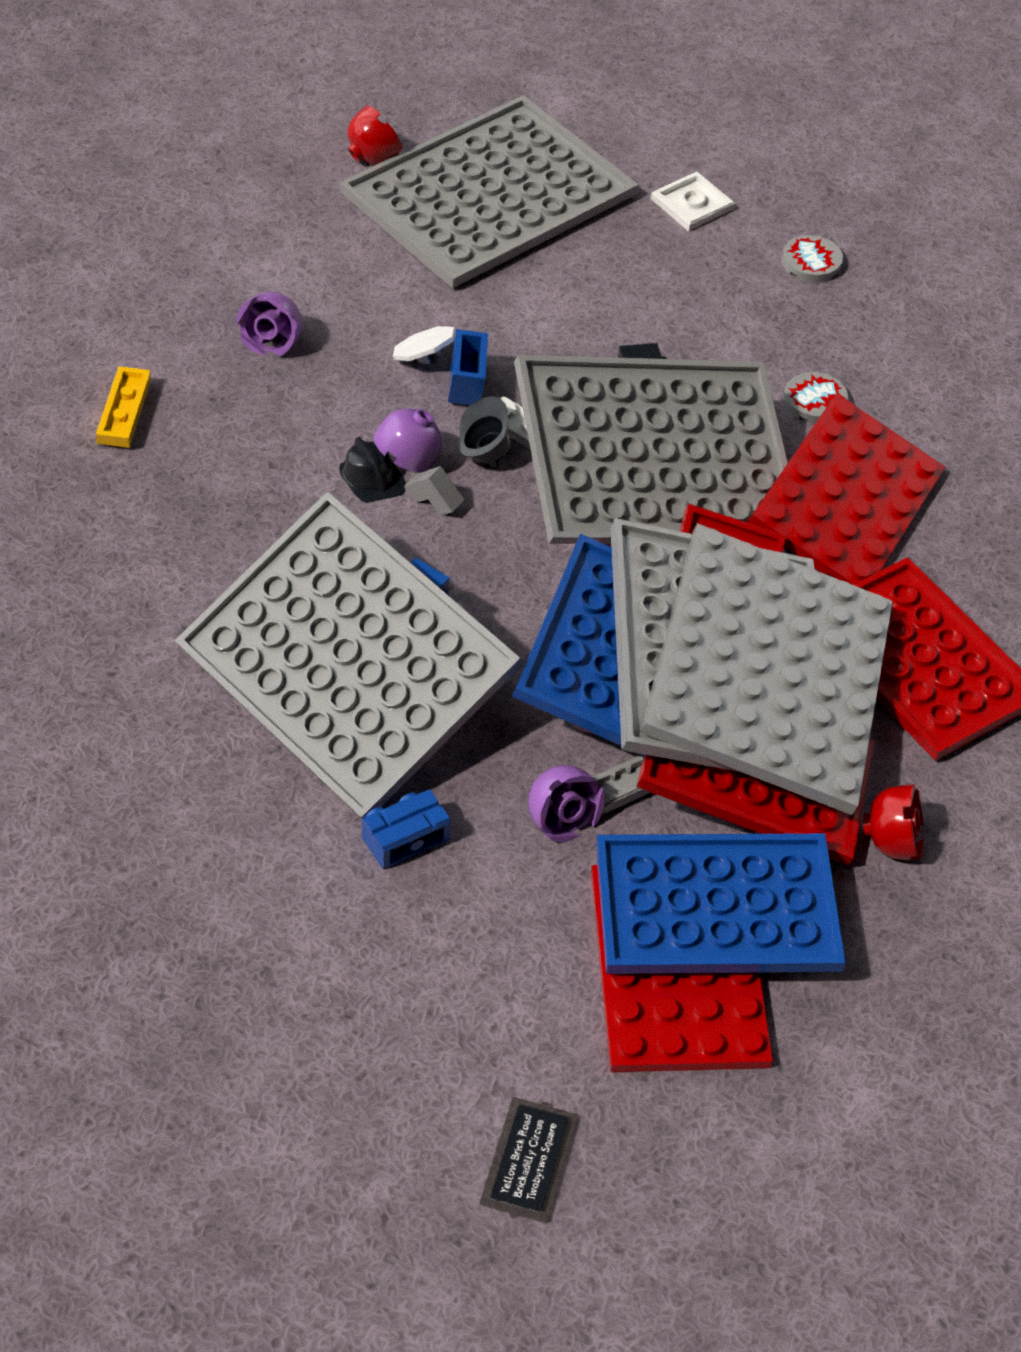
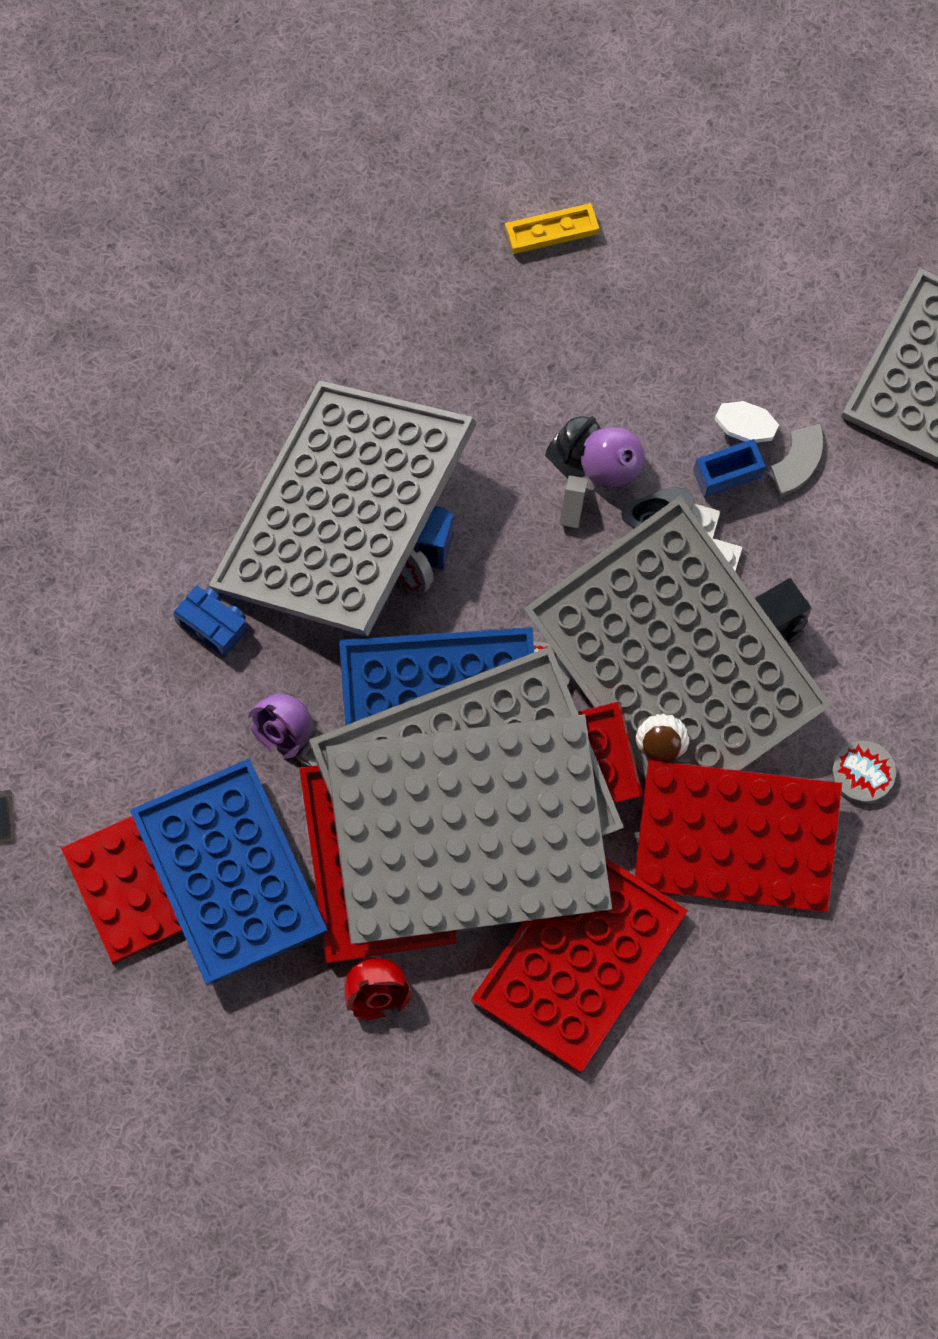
camera: 70 degrees right, 20 degrees up
(266, 317) = (706, 288): medium lavender cylinder -> none
(475, 319) = (801, 460): none -> light grey tile
(734, 495) = (662, 737): none -> hair

